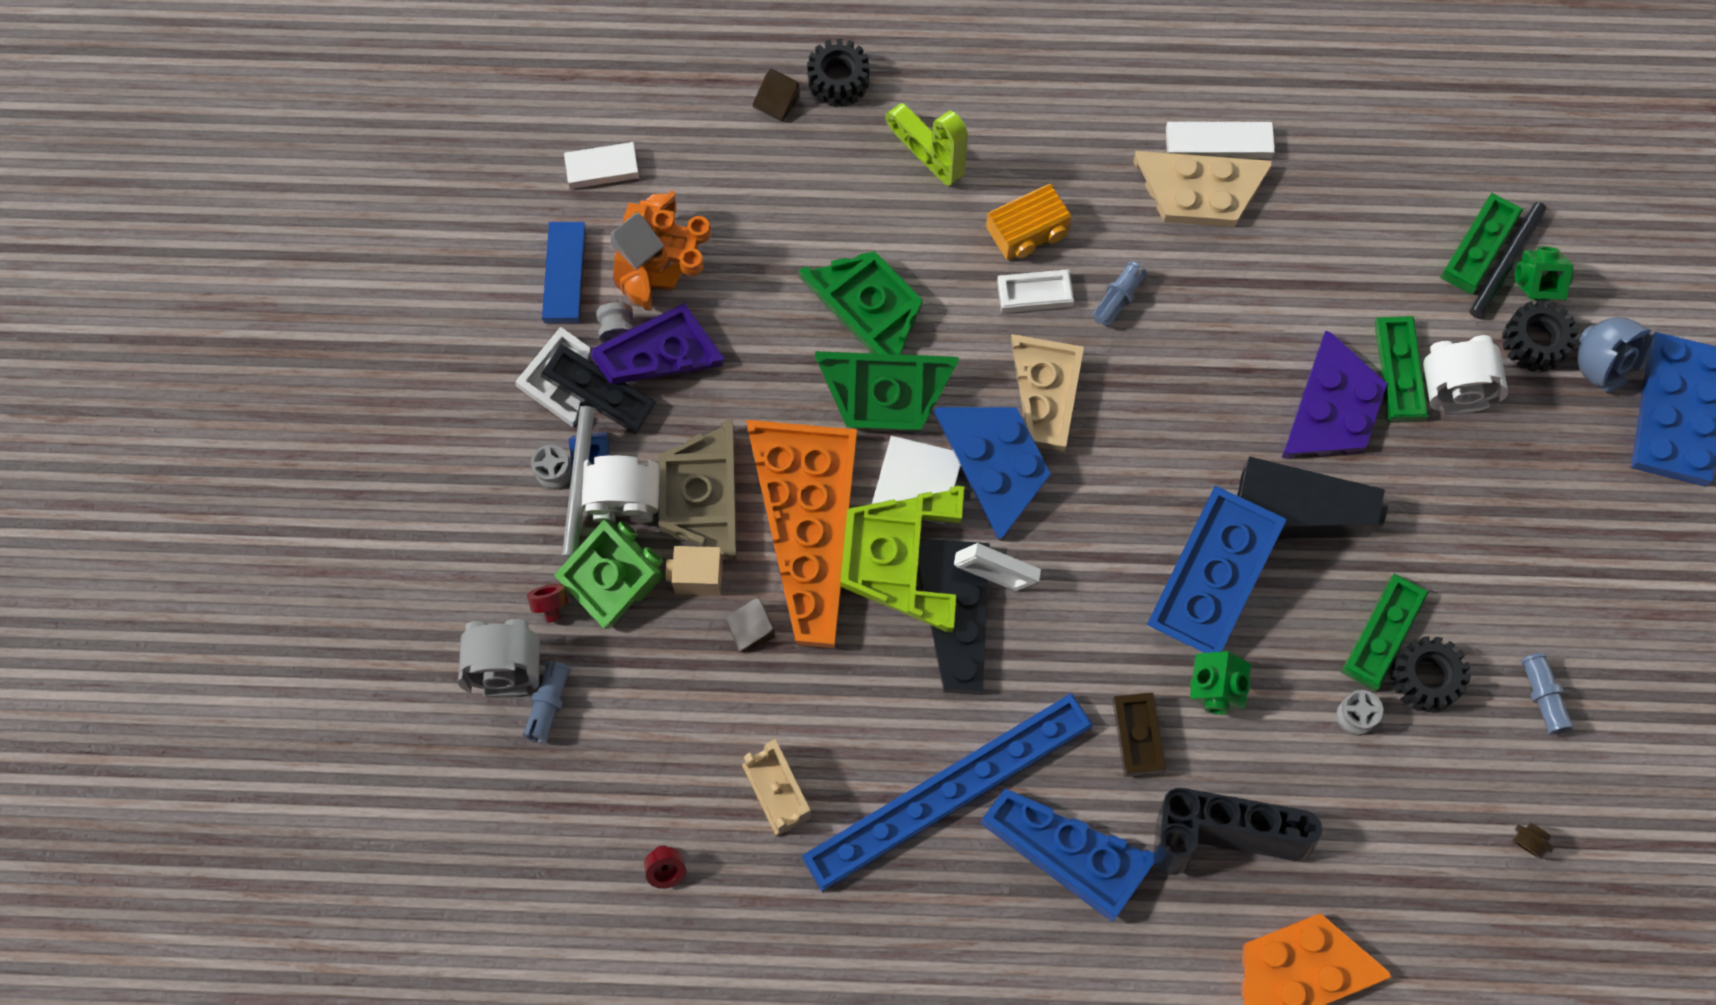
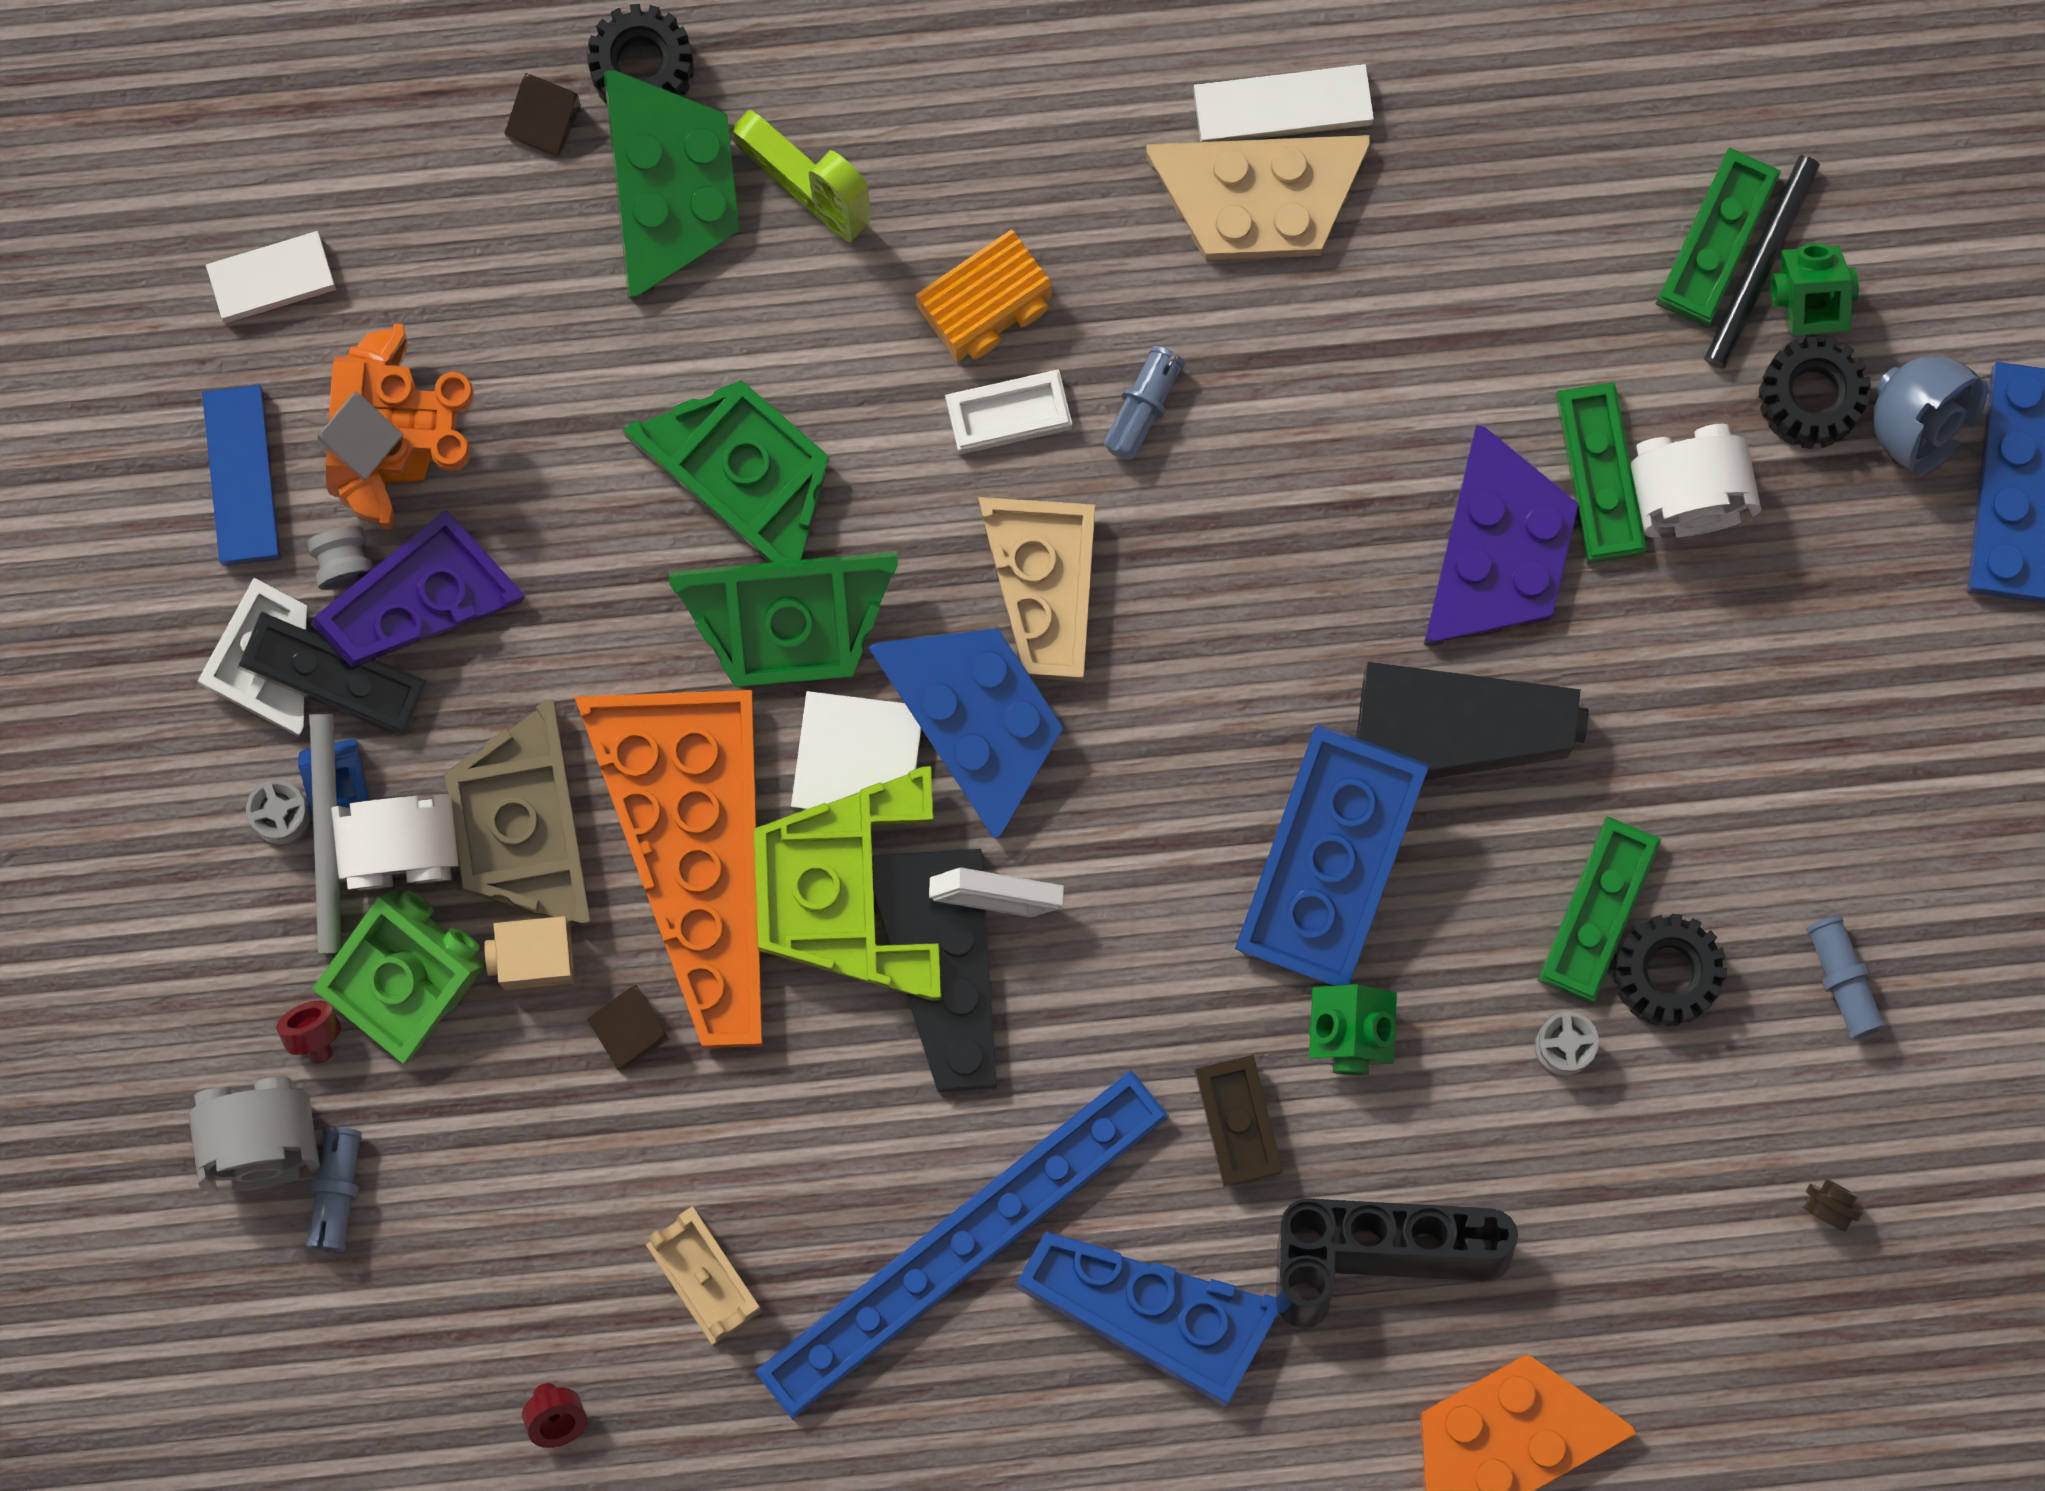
camera: 10 degrees left, 10 degrees up
(846, 134) = (668, 177): none -> green wing

